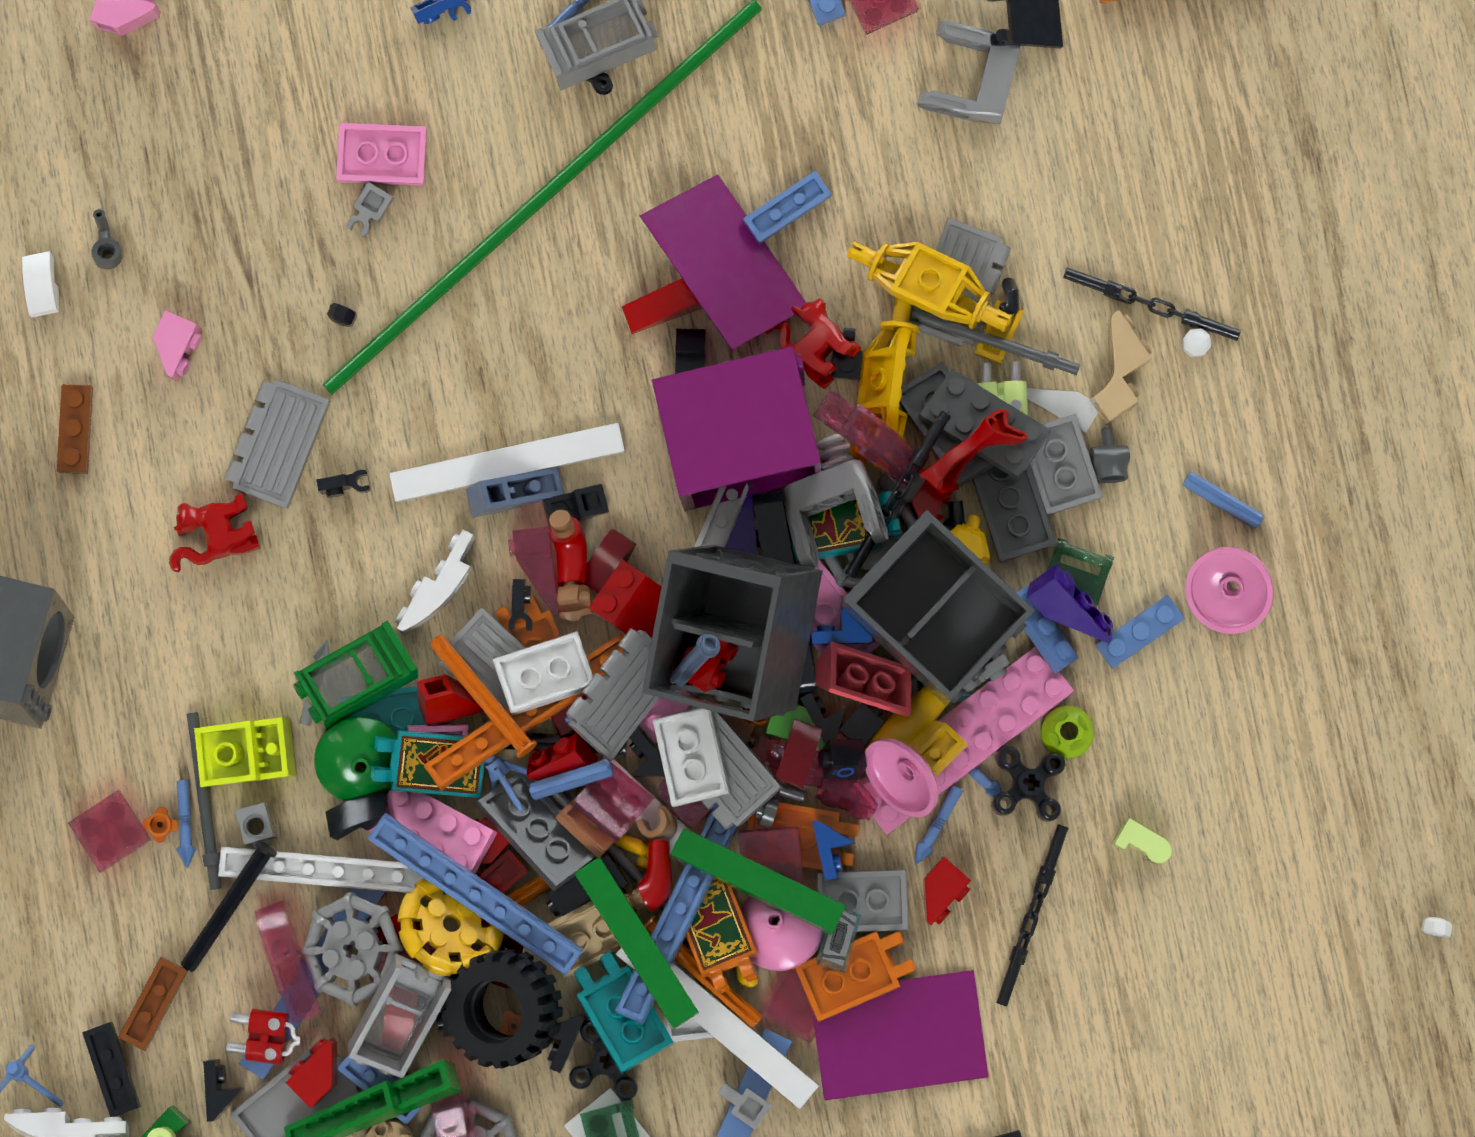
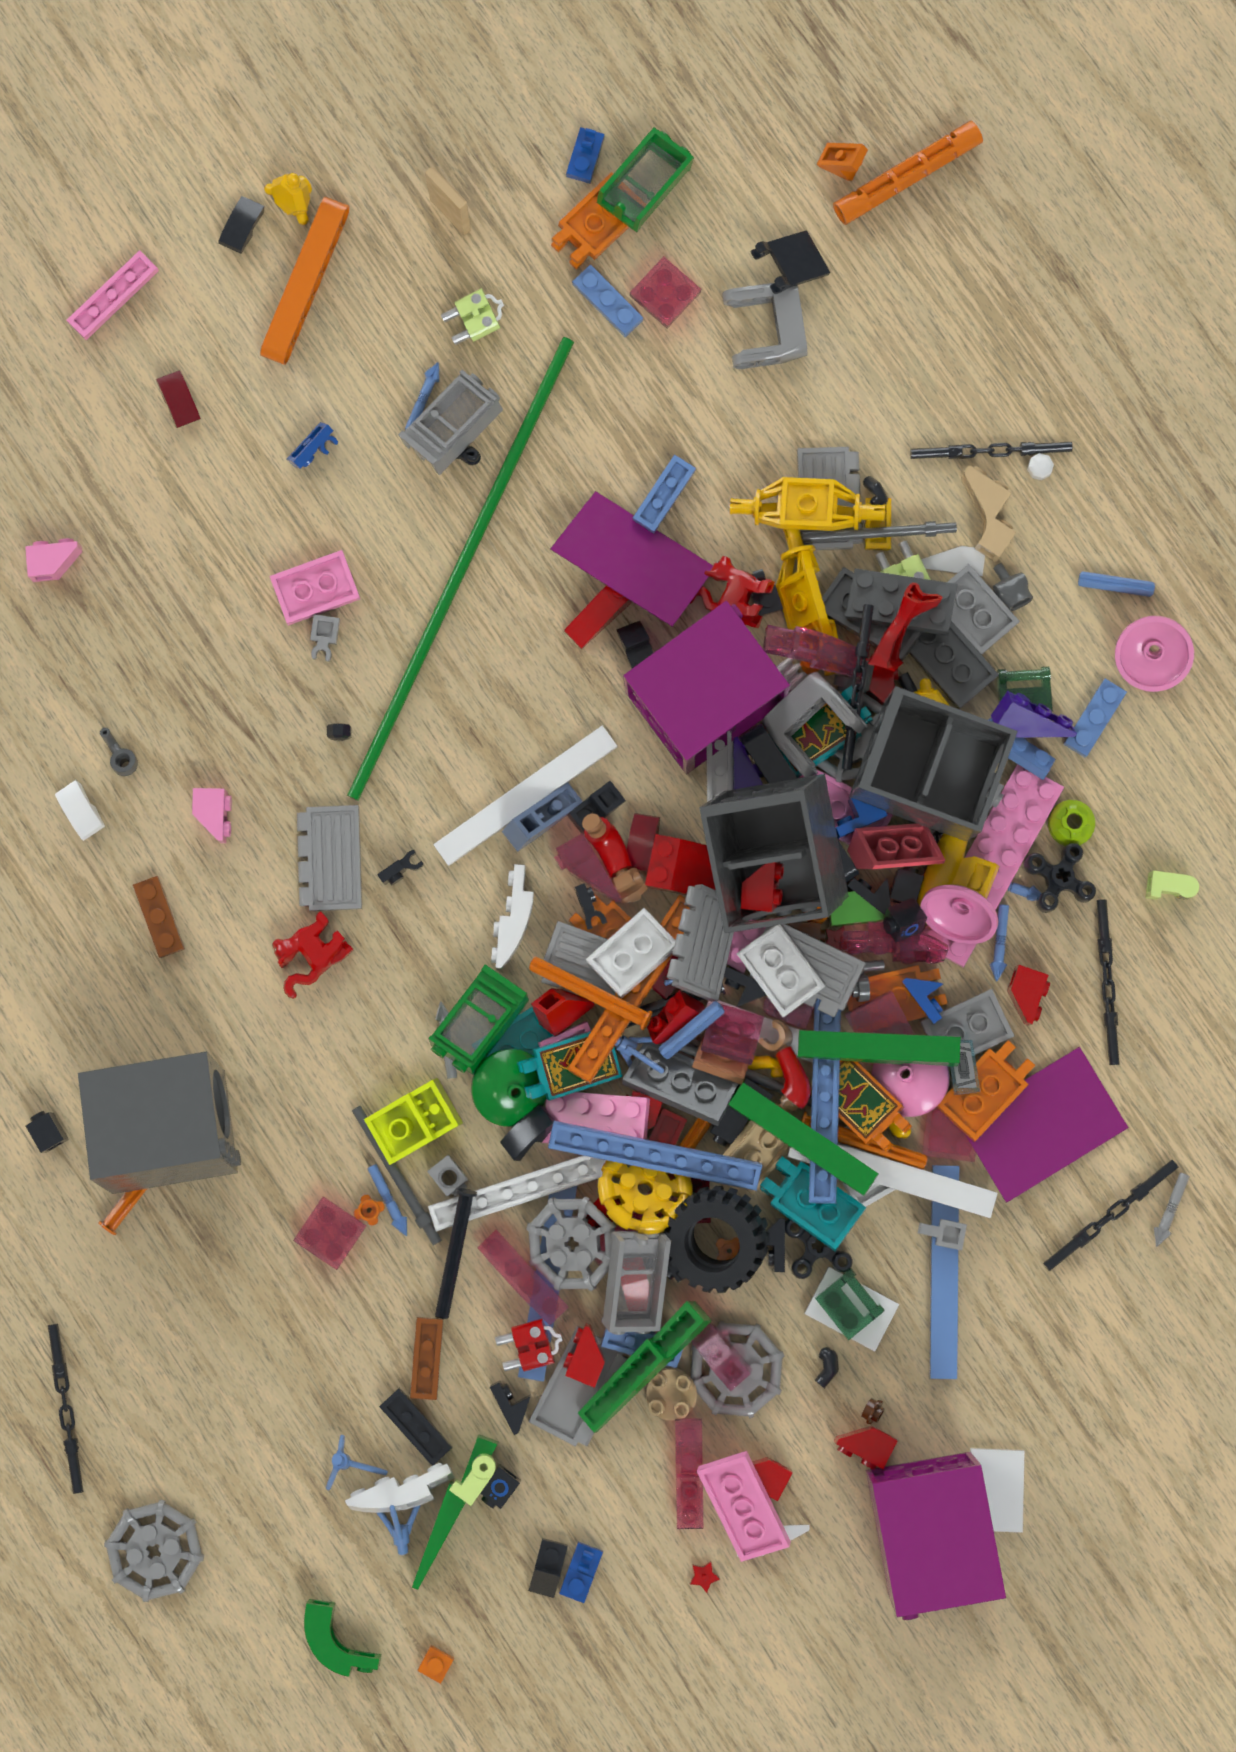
camera: 25 degrees left, 0 degrees up
(706, 647) = (764, 873): sand blue axle -> none
(798, 753) = (867, 930): dark red slope -> none

